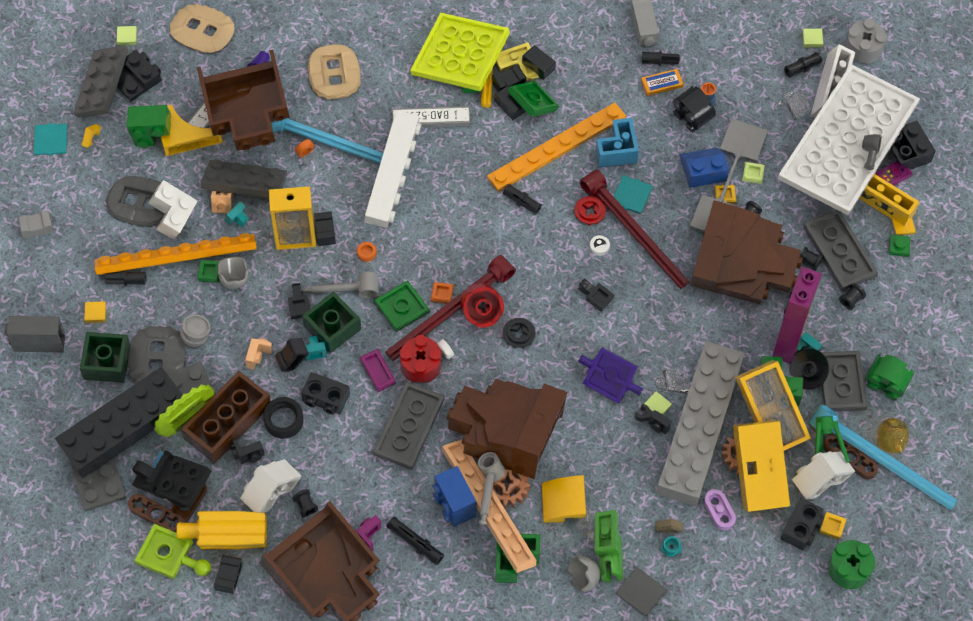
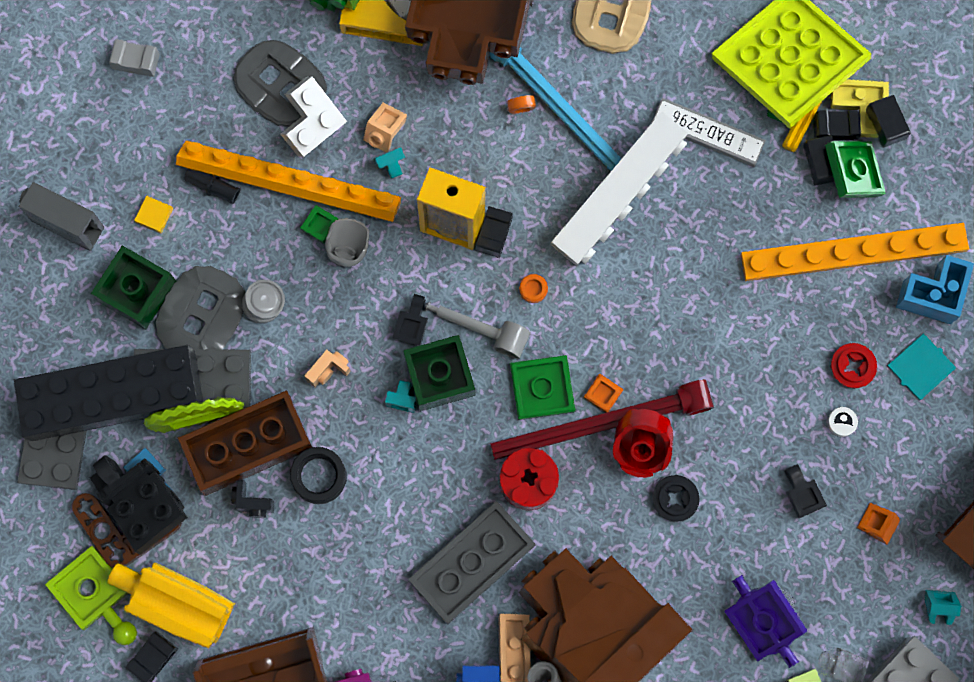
camera: 25 degrees right, 15 degrees up
(242, 178) = (422, 114): dark grey plate -> none
(268, 484) = (256, 564): white brick -> none
(292, 354) = (367, 395): black piece -> none
(305, 503) = (291, 607): black bush -> none
(328, 389) = (391, 464): black brick -> none
(377, 370) = (469, 464): magenta tile -> none
(445, 349) = (568, 477): white tile -> none
(532, 205) = (771, 307): black pin -> none
(596, 185) = (878, 333): dark red piece -> none
(652, 292) = (879, 523): none -> orange slope
(717, 318) = (942, 604): none -> teal tile

